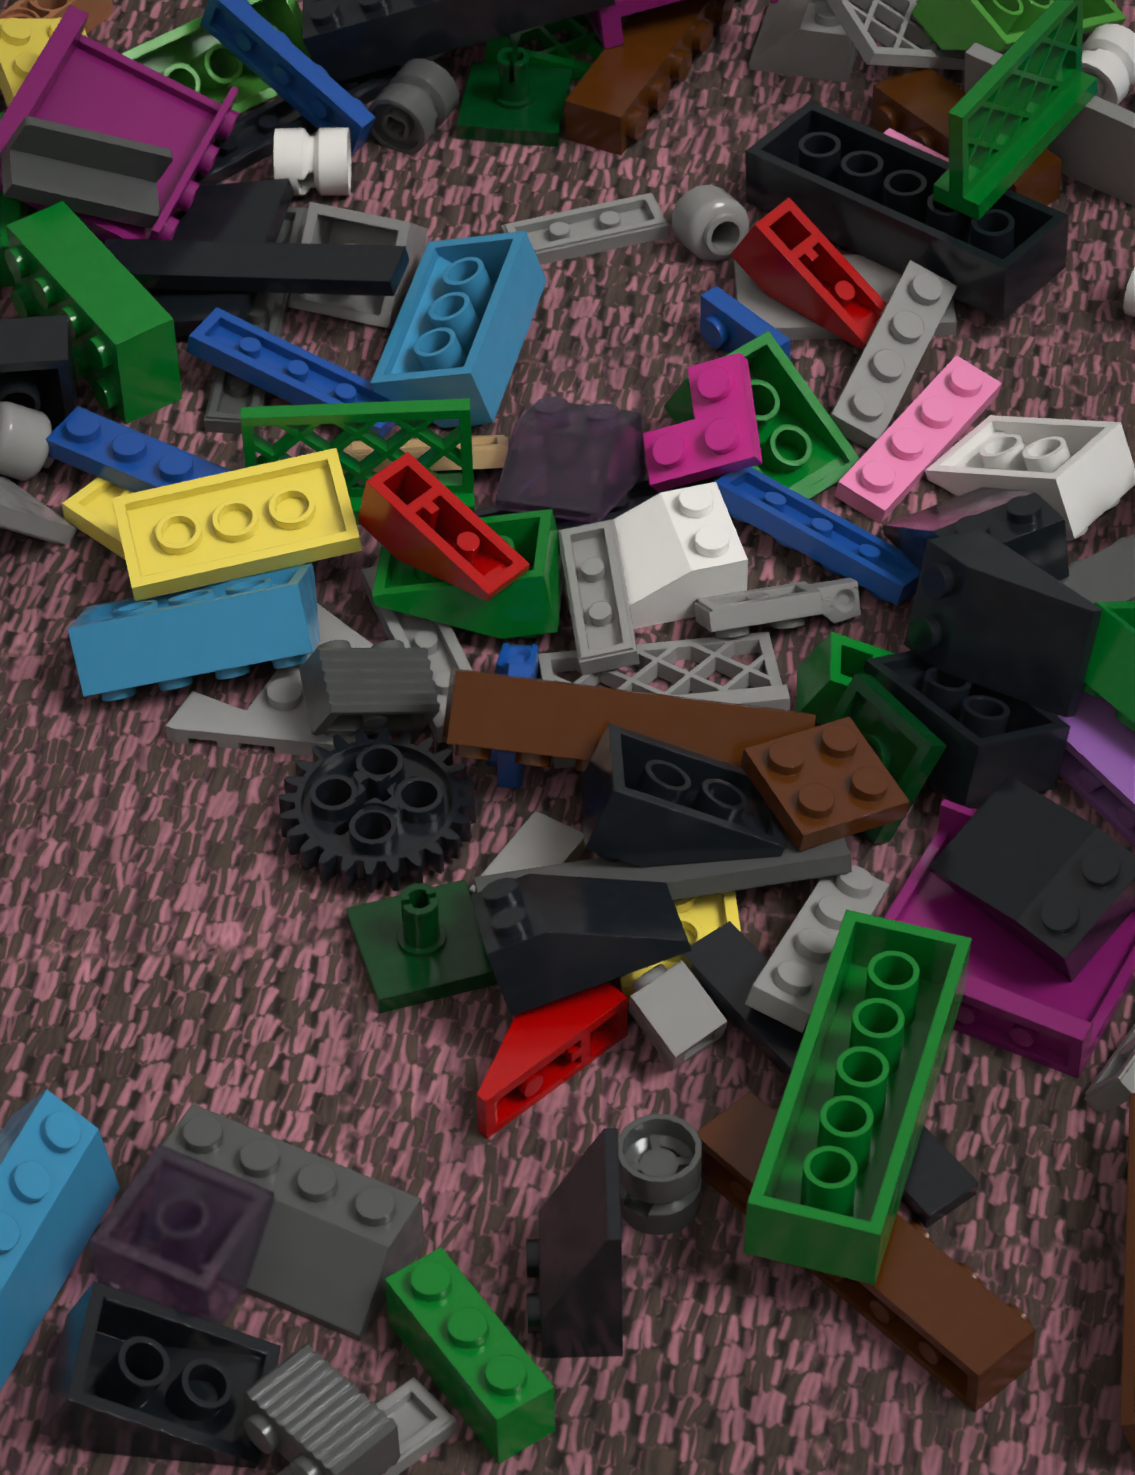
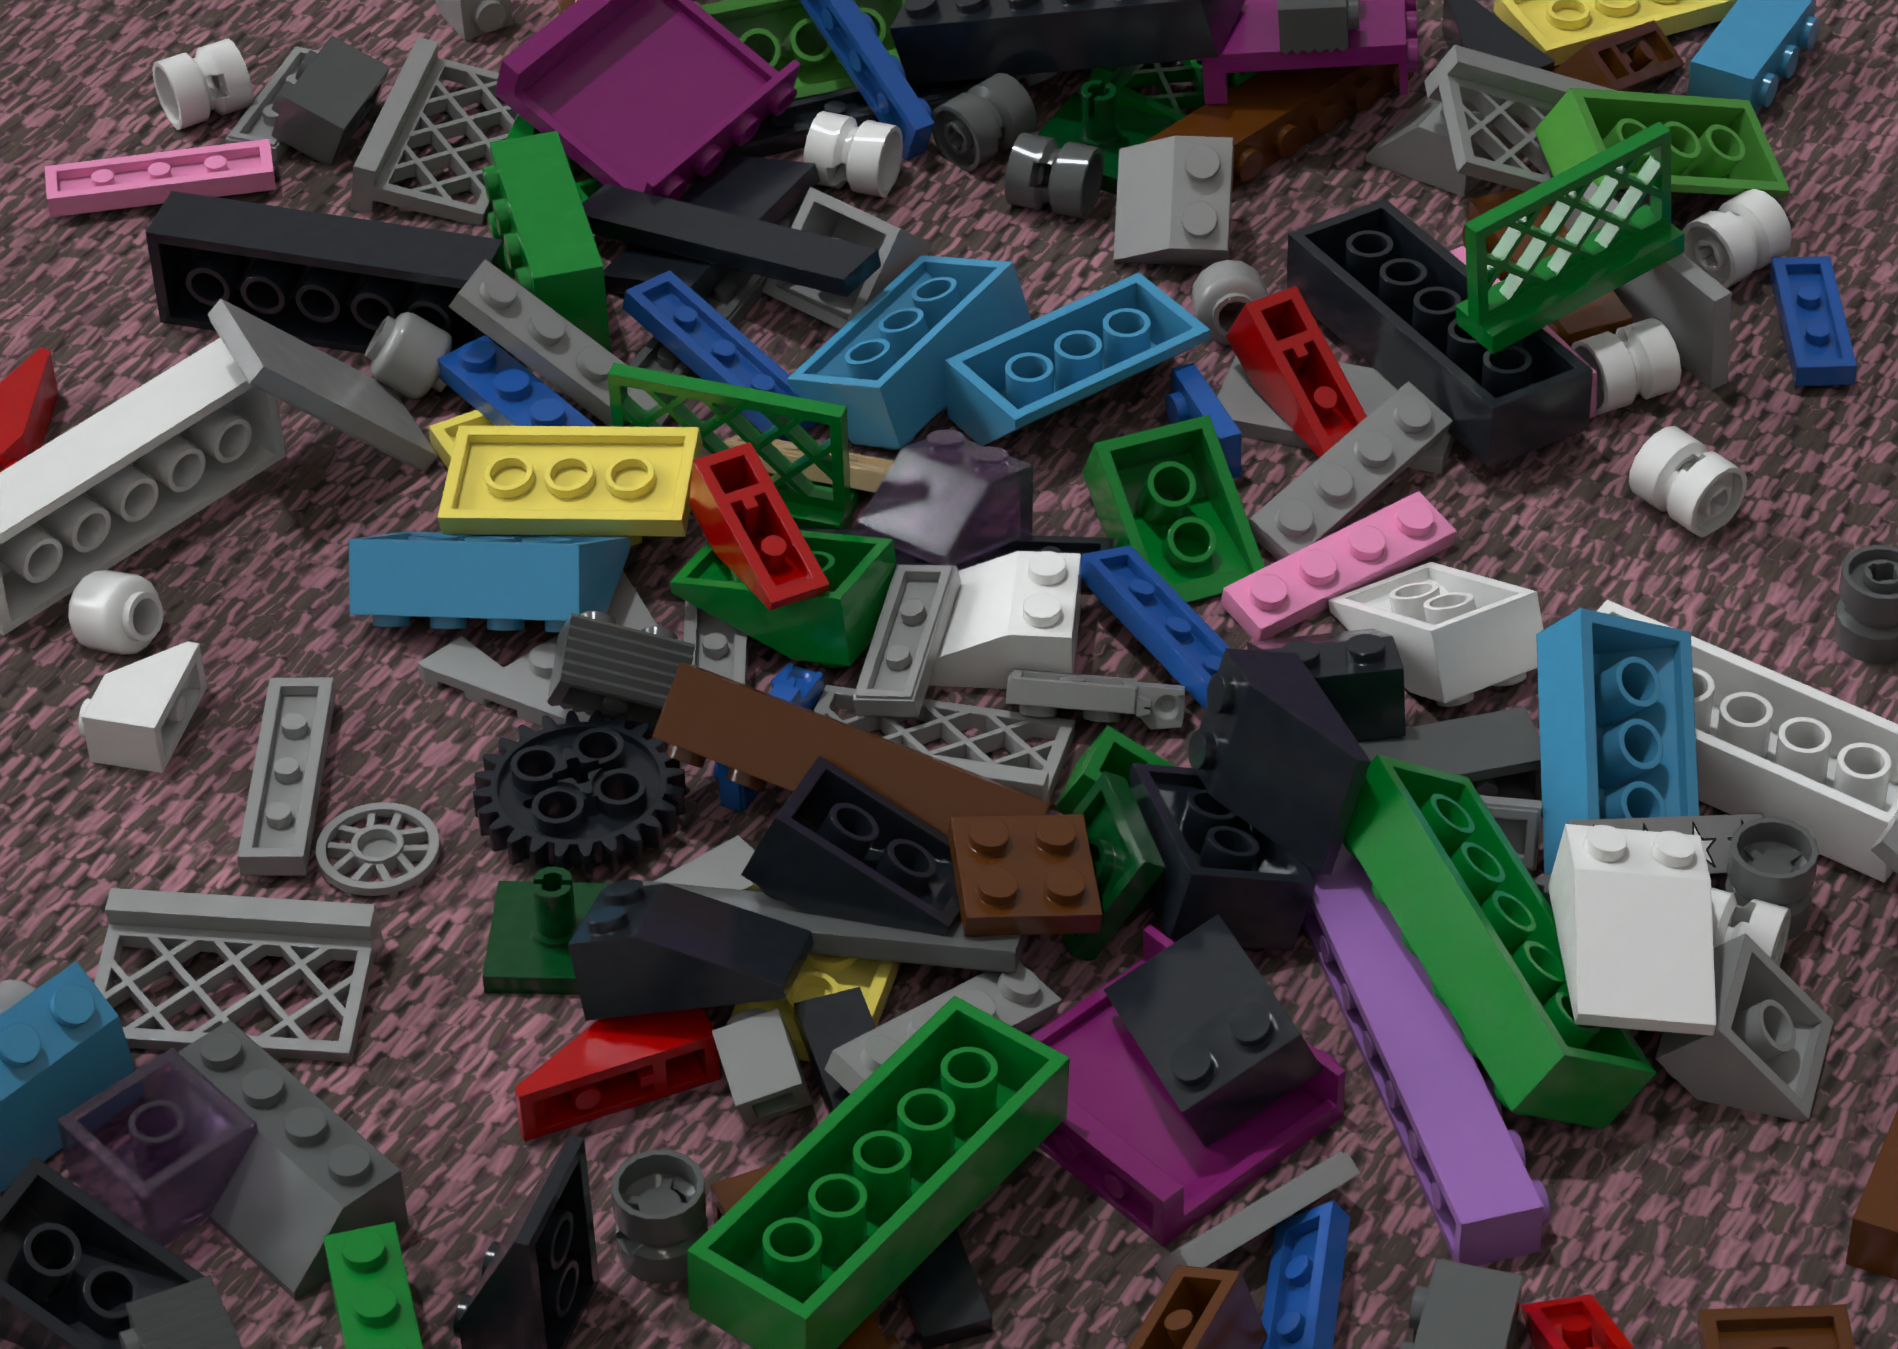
camera: 20 degrees right, 5 degrees down
(84, 170) = (595, 108): dark grey panel -> none
(103, 862) = (287, 777): none -> light grey plate
(152, 403) = (542, 340): none -> light grey plate
(156, 1012) = (251, 930): none -> light grey fence
(217, 908) = (378, 849): none -> light grey wheel
(519, 142) = (1052, 175): none -> dark grey wheel
(593, 228) = (1063, 281): light grey tile -> none
(608, 308) = (1066, 357): none -> dark azure slope
(625, 142) = (1175, 201): none -> light grey slope
(720, 436) = (1110, 506): dark pink plate -> none
(1083, 192) = (1631, 362): none -> white wheel

